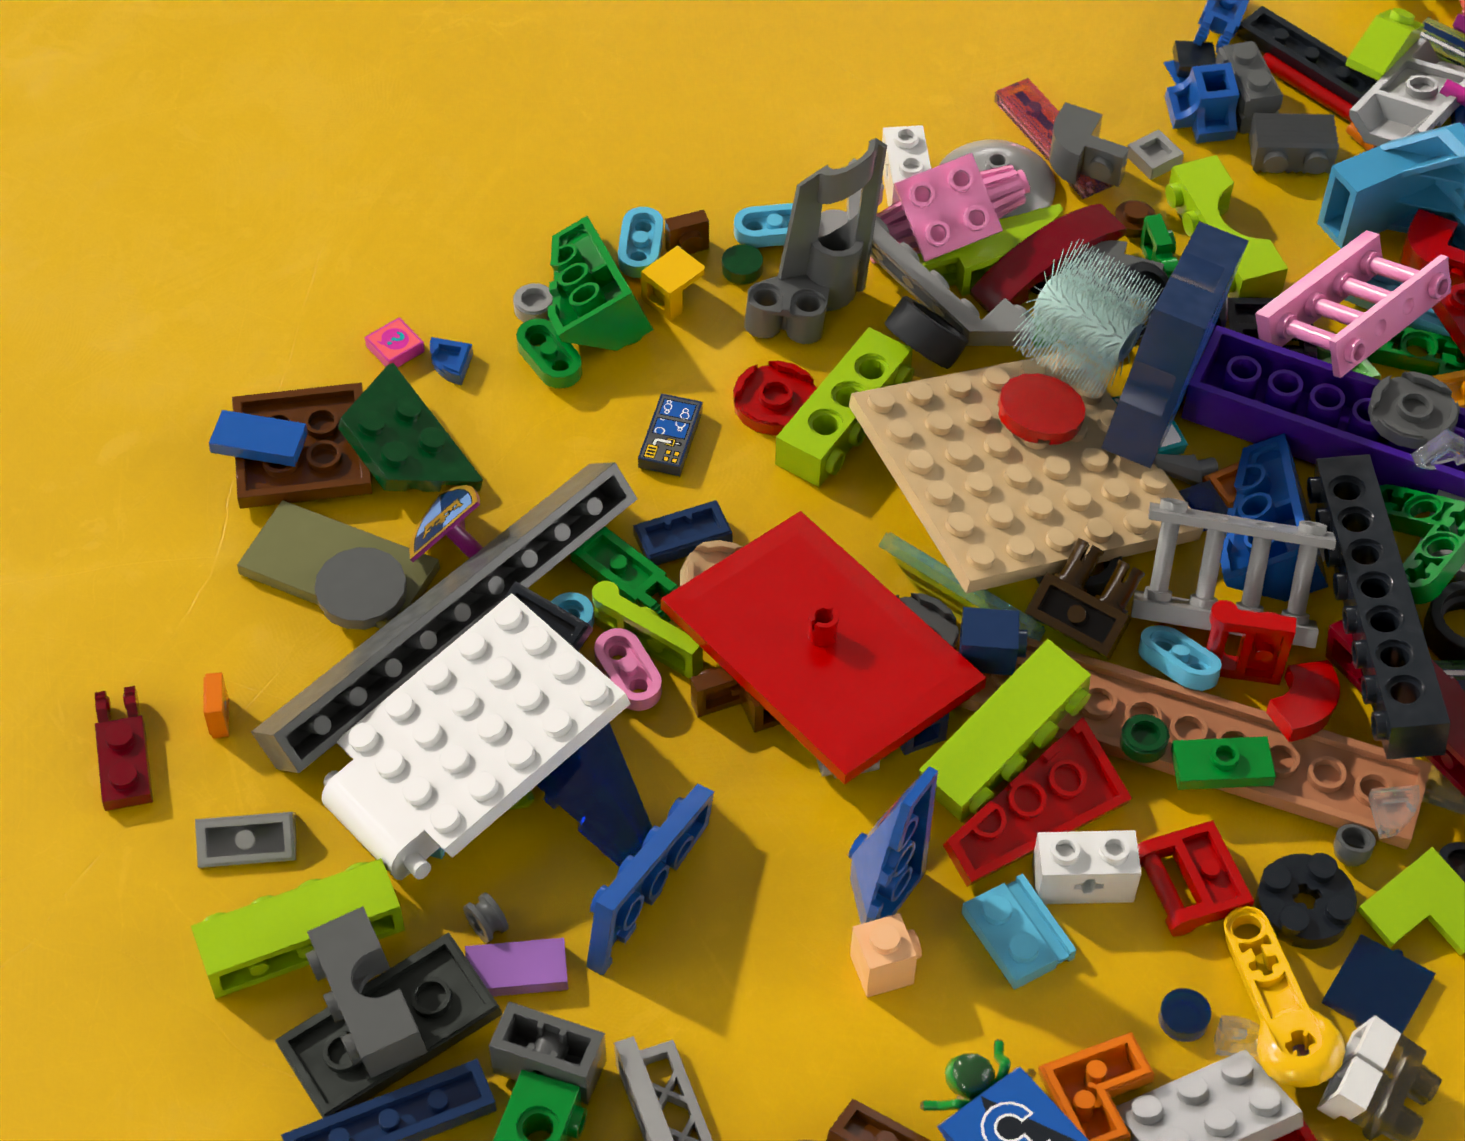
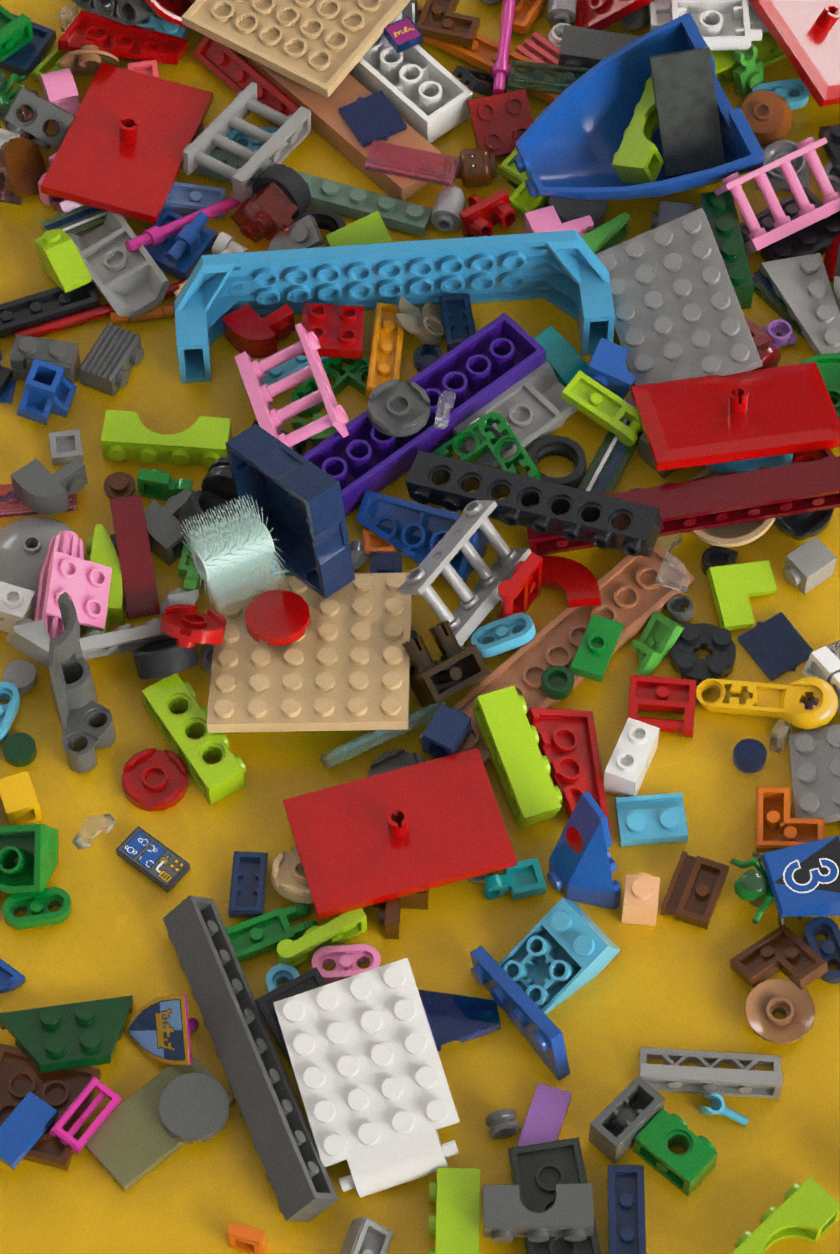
camera: 65 degrees left, 5 degrees up
(298, 504) = (68, 1137): none -> dark pink tile
(676, 362) = (91, 828): none -> clear tile
(753, 893) = (559, 955): none -> medium azure slope
(841, 810) = (520, 880): none -> teal plate
(937, 1018) = (694, 890): none -> reddish brown plate
(973, 330) = (193, 627): none -> red plate
(1285, 836) = (656, 642): none -> bright green slope

